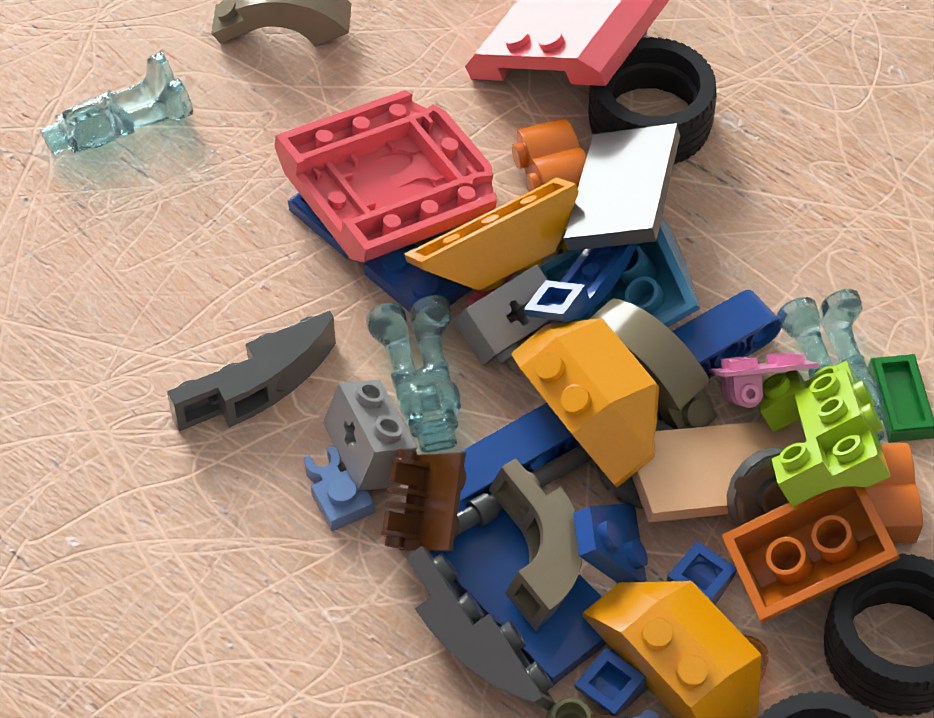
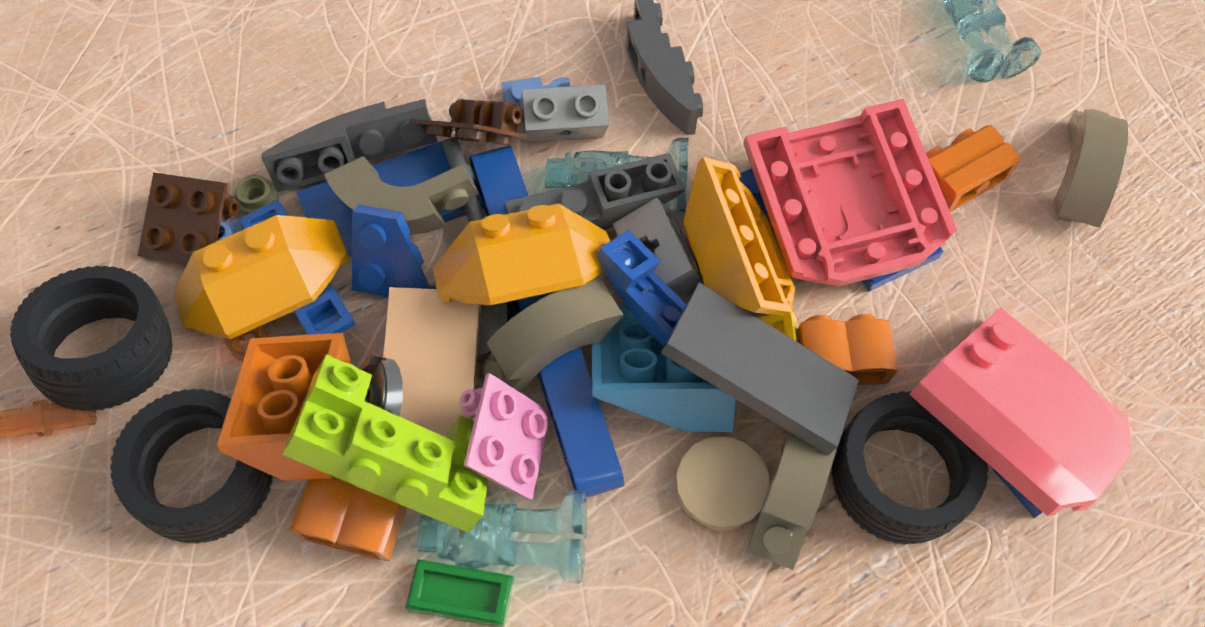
camera: 105 degrees right, 10 degrees up
(309, 93) = (972, 164): none -> orange brick
(477, 371) = (612, 191): none -> dark grey slope
(716, 233) = (722, 483): none -> tan tile
(720, 166) = (791, 502): none -> dark tan arch

